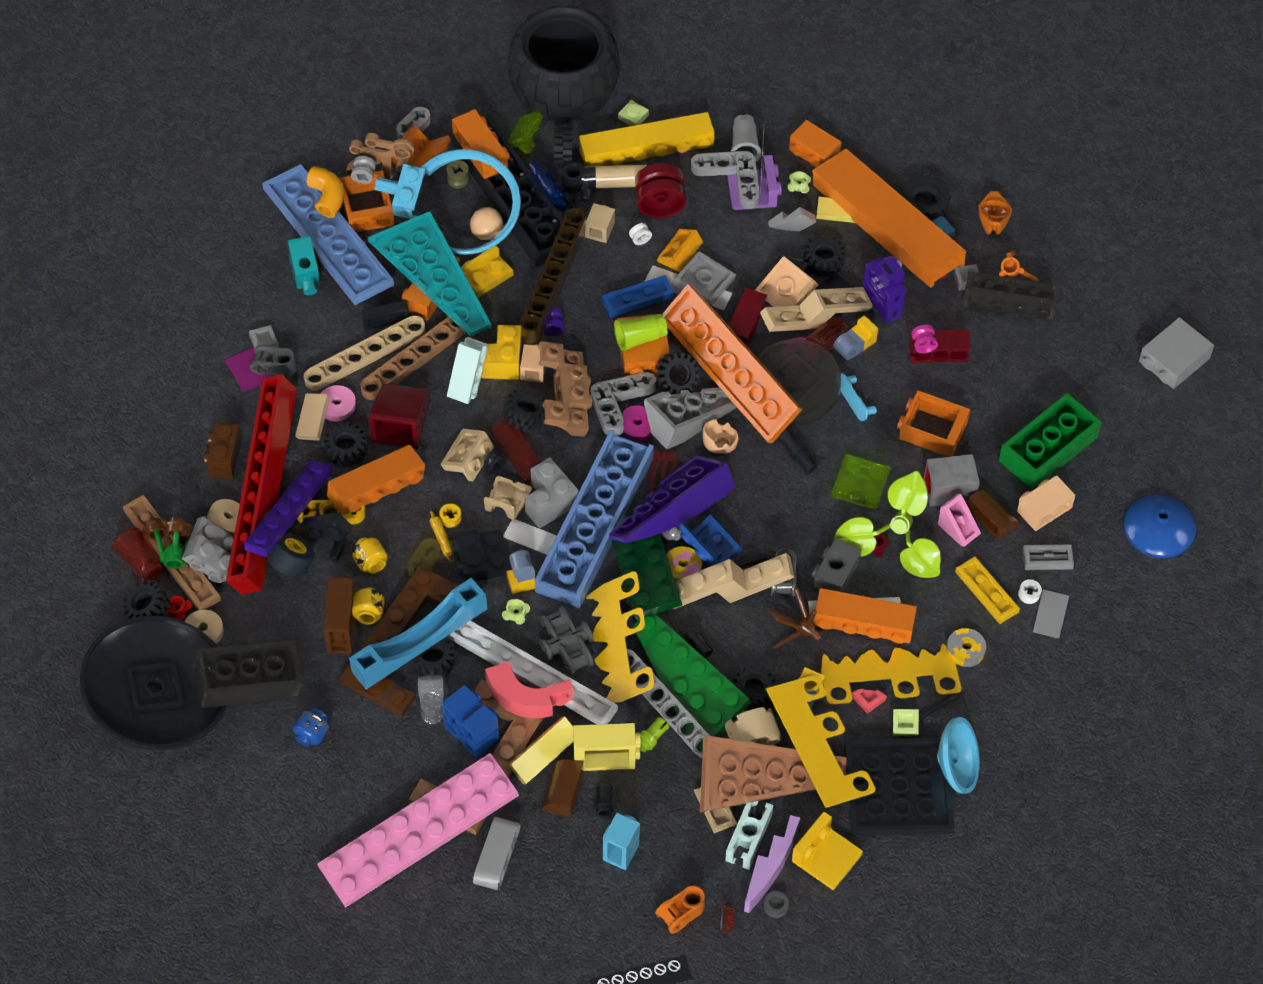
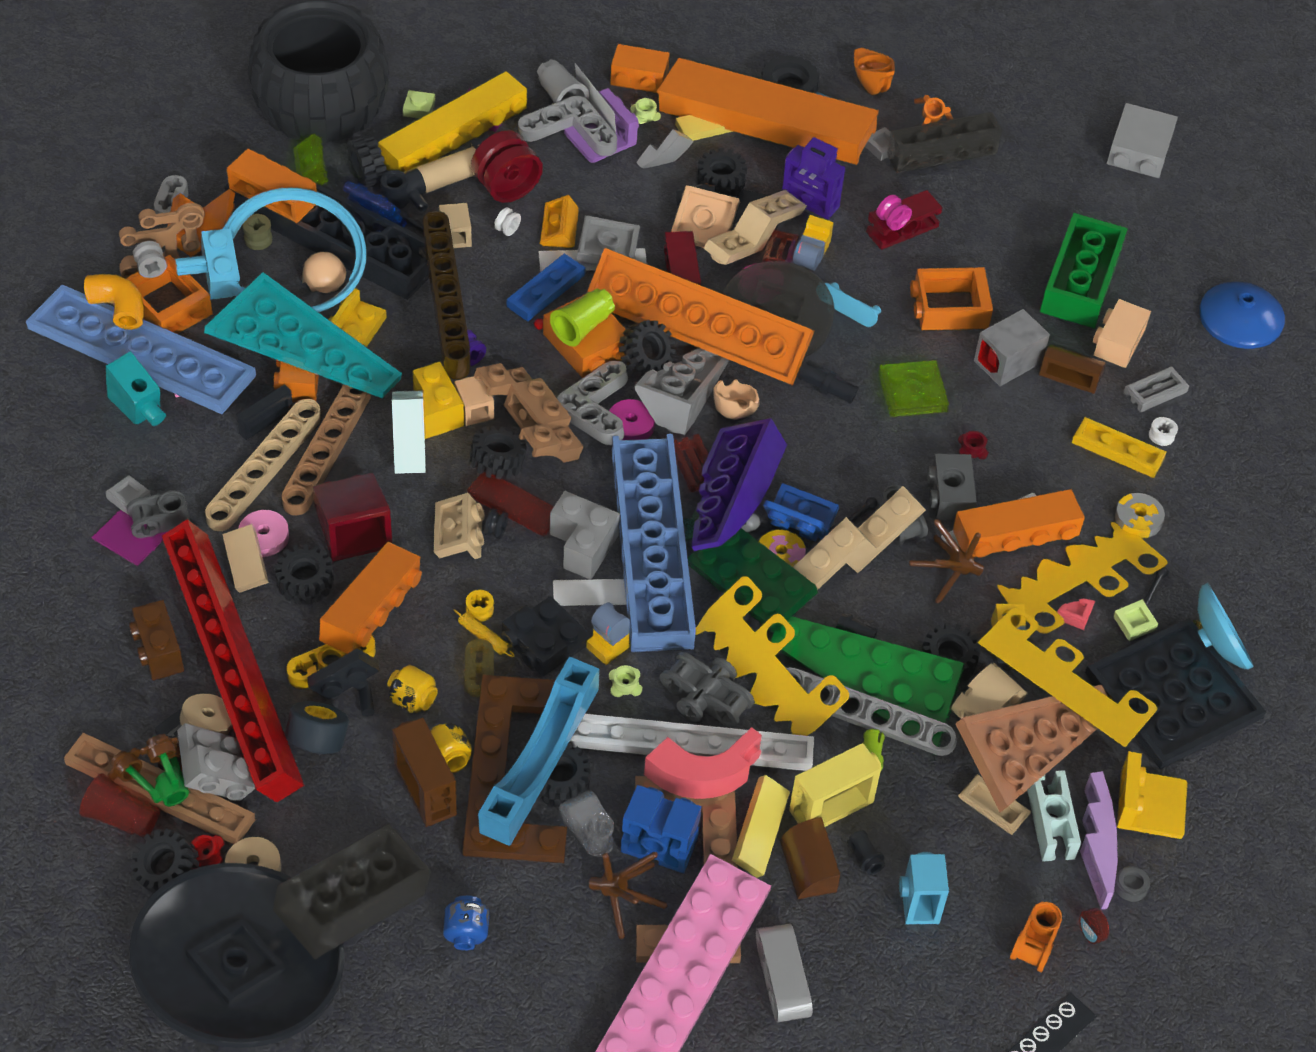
camera: 30 degrees left, 5 degrees down
(288, 508) = (284, 673): dark purple plate -> none
(423, 746) = (616, 886): none -> reddish brown plant
(508, 496) = (533, 555): tan piece -> none
(910, 497) = (999, 369): lime plant -> none
(958, 521) = (1044, 387): bright pink slope -> none
(1051, 614) = (1198, 446): light grey sticker -> none

